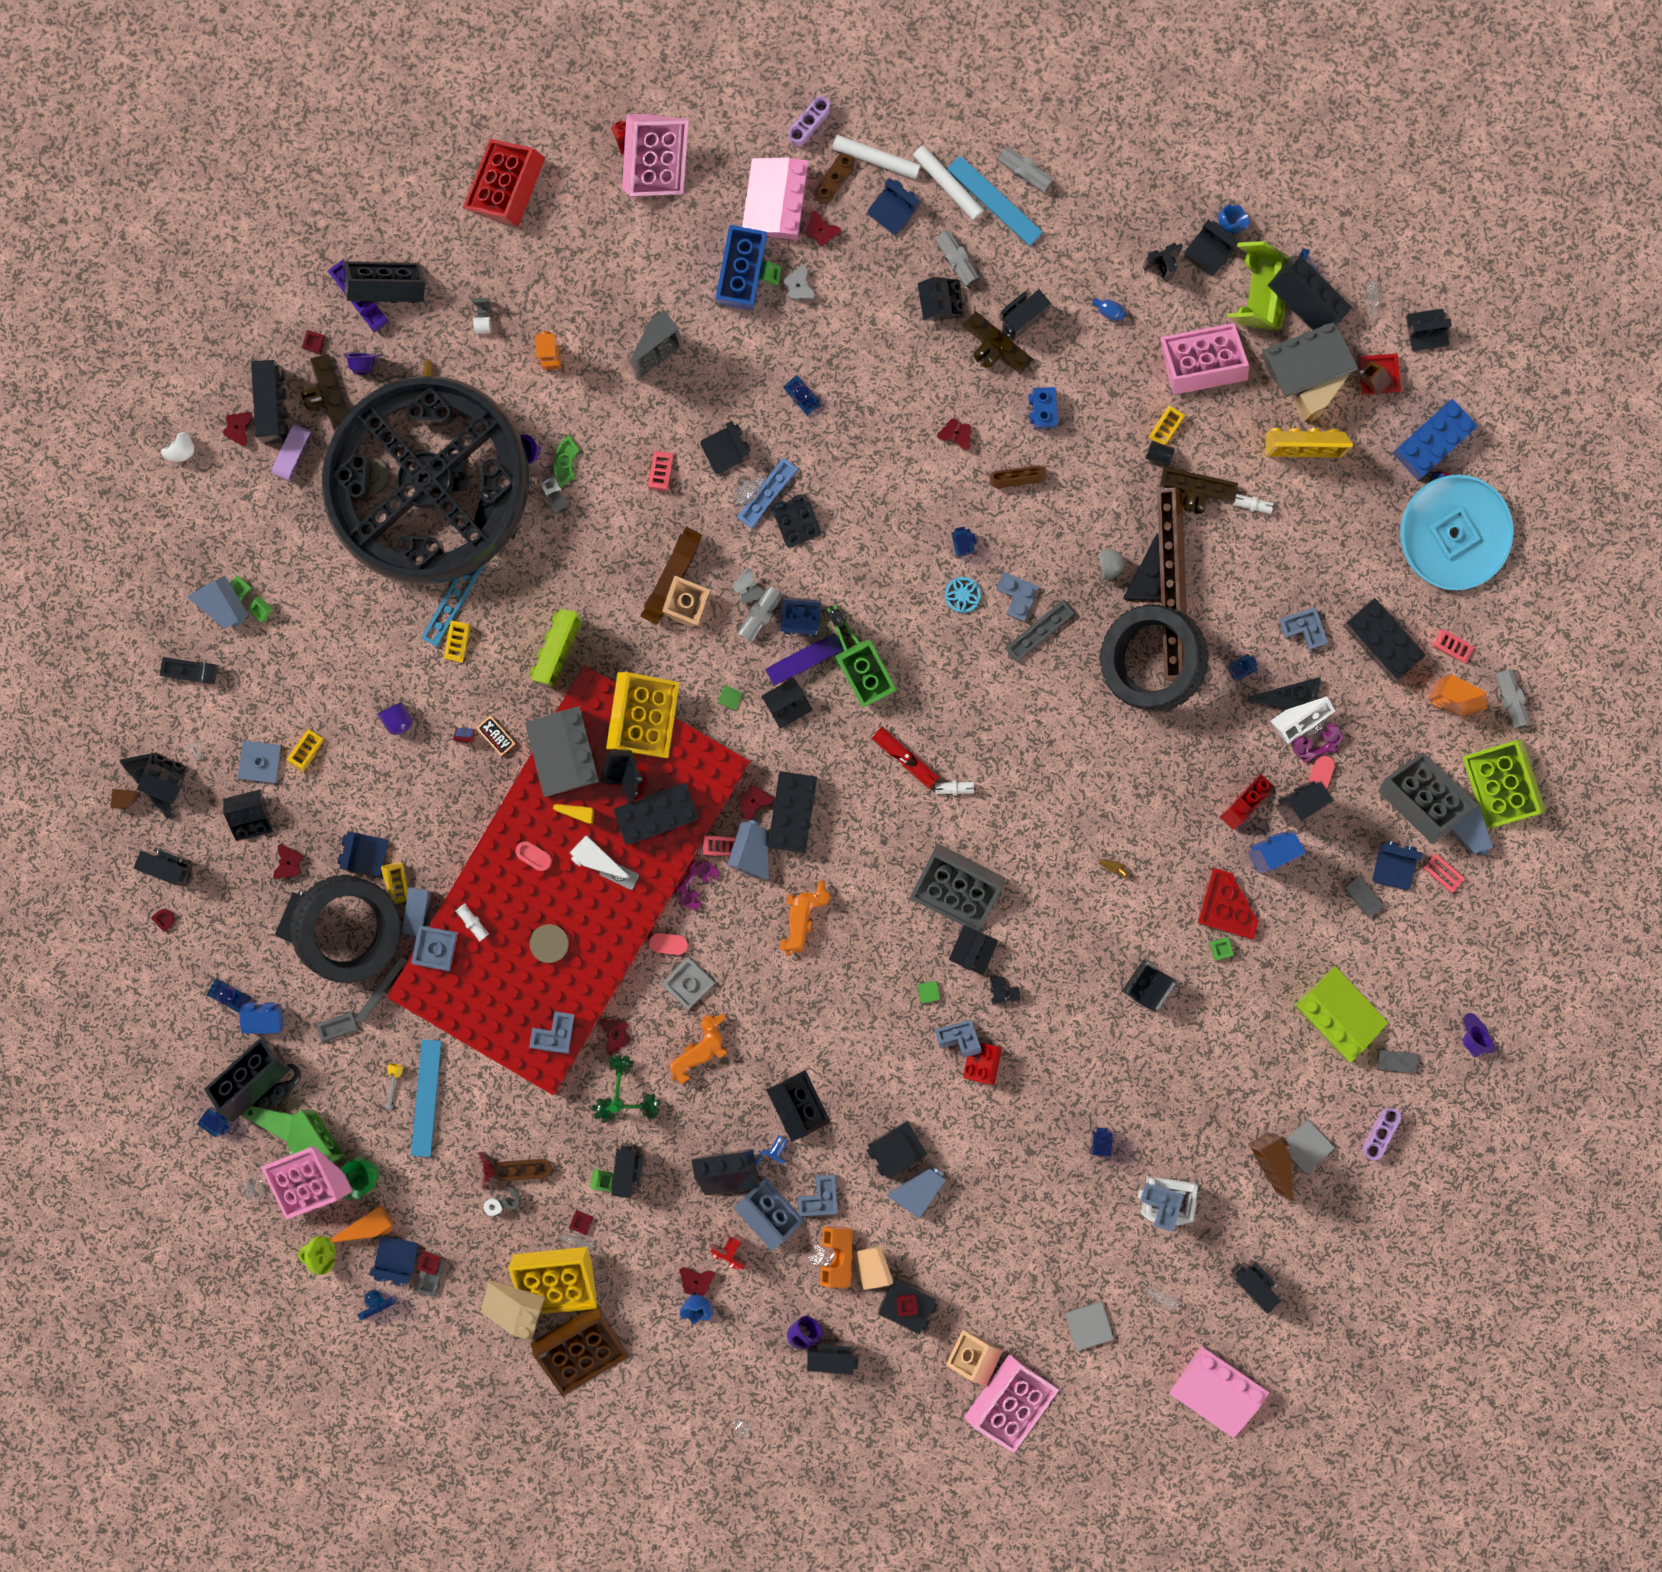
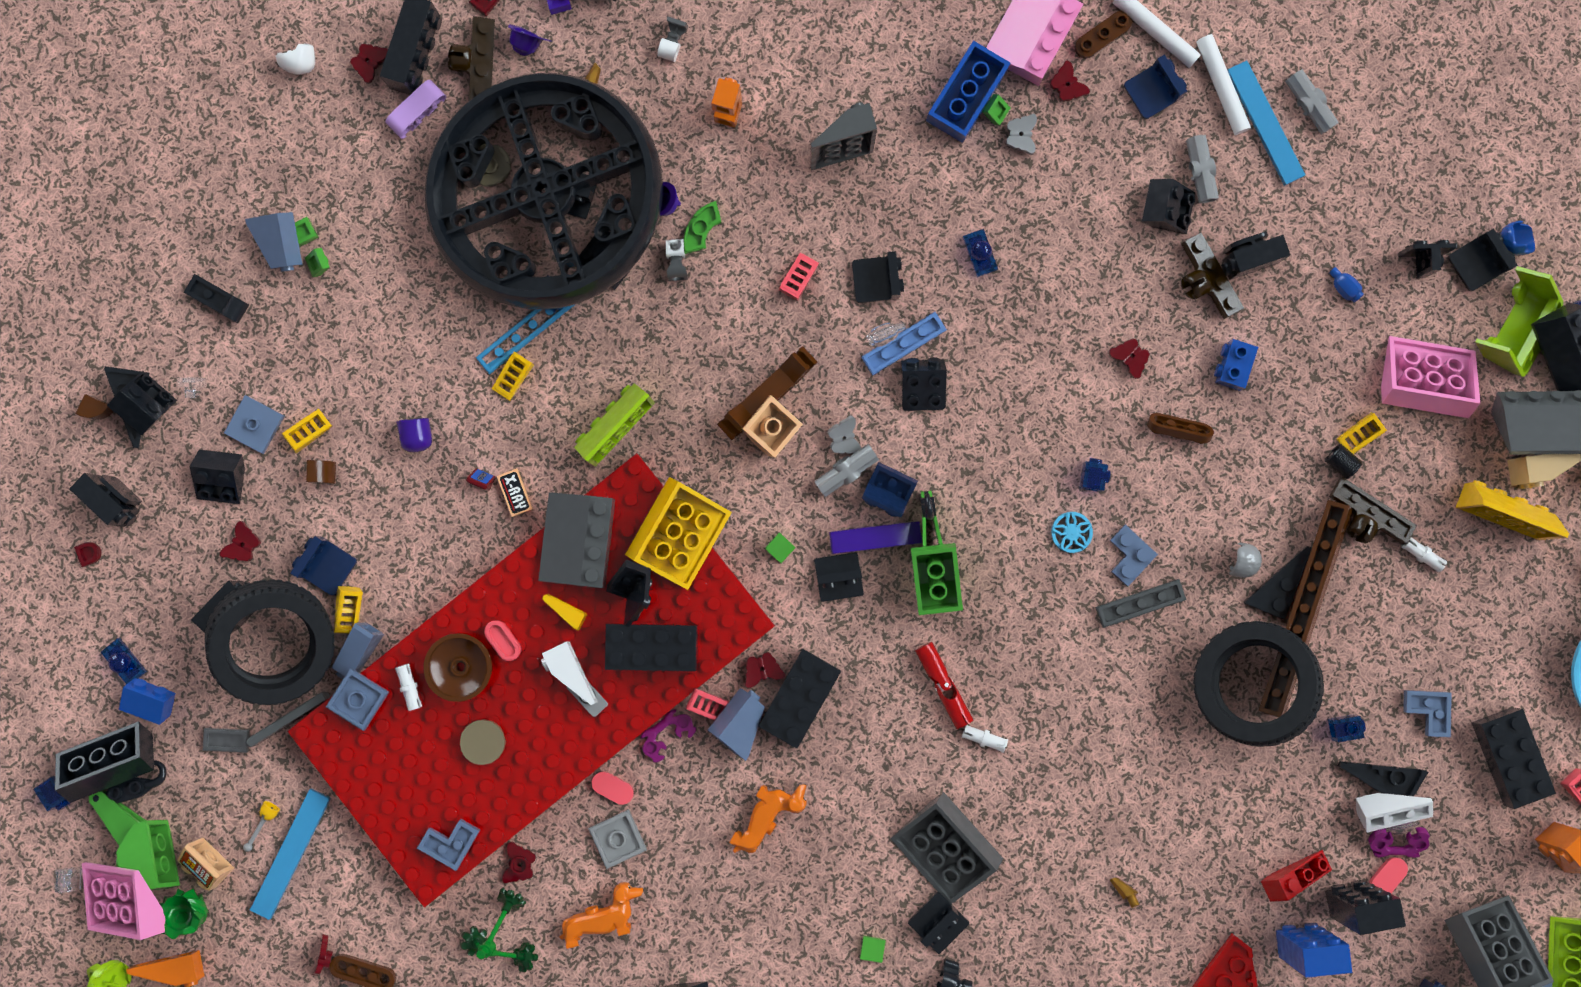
camera: 25 degrees right, 0 degrees up
(330, 779) = (321, 472): none -> reddish brown brick
(359, 1131) = (204, 864): none -> light nougat slope
(492, 889) = (442, 667): none -> reddish brown dish

